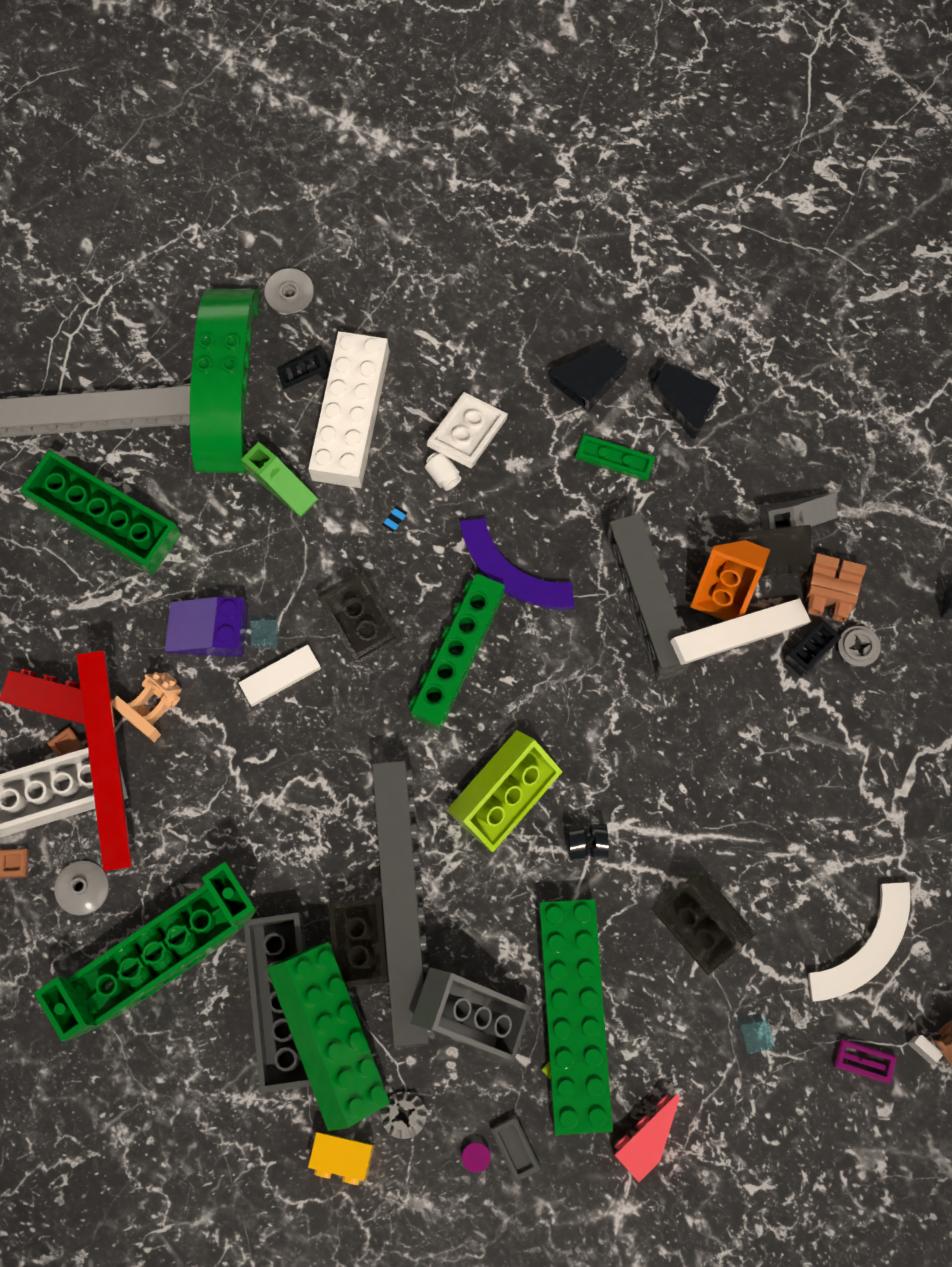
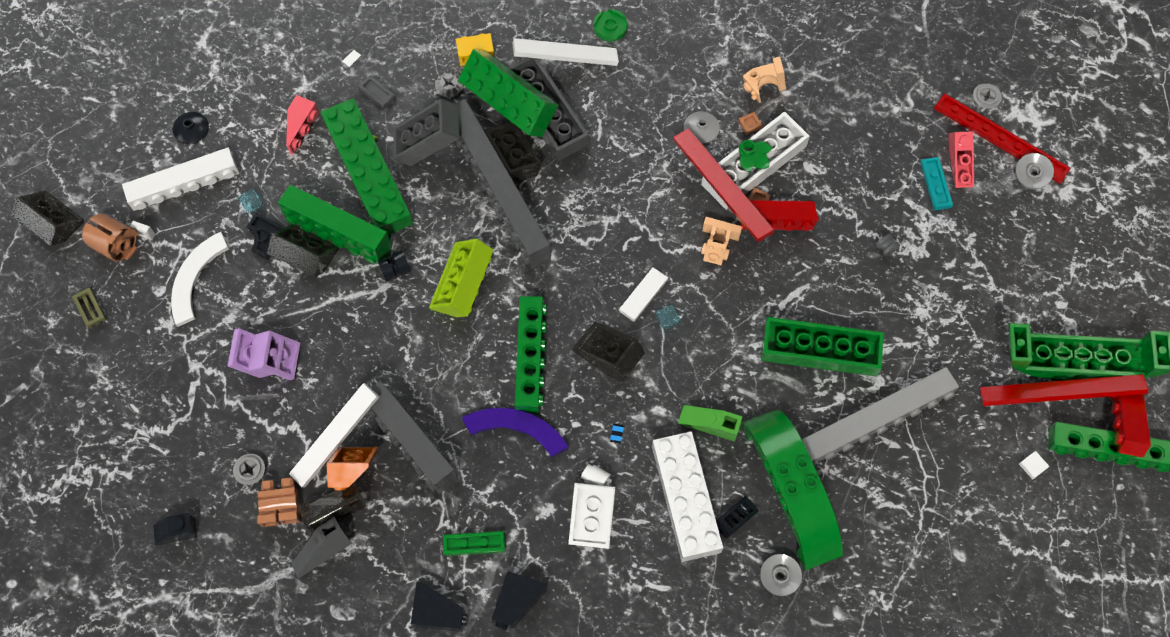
camera: 155 degrees right, 5 degrees down
(38, 784) = (756, 157): none -> green plate
(123, 1117) = (610, 25): none -> green tile
(148, 957) = (638, 93): green slope -> none
(207, 627) = (707, 304): dark purple slope -> none
(213, 1081) = (565, 52): none -> white tile
(476, 1157) = (398, 79): magenta tile -> none
(532, 1233) = (351, 58): none -> white sticker
(649, 932) = (334, 224): none -> green brick
(748, 972) = (262, 229): none -> black tile
(800, 1204) = (193, 133): none -> black dish
(801, 782) = (264, 354): none -> lavender bracket
(806, 663) = (287, 457): black slope -> none
(842, 1054) = (179, 216): magenta tile -> none
(850, 1113) = (180, 179): none -> white brick

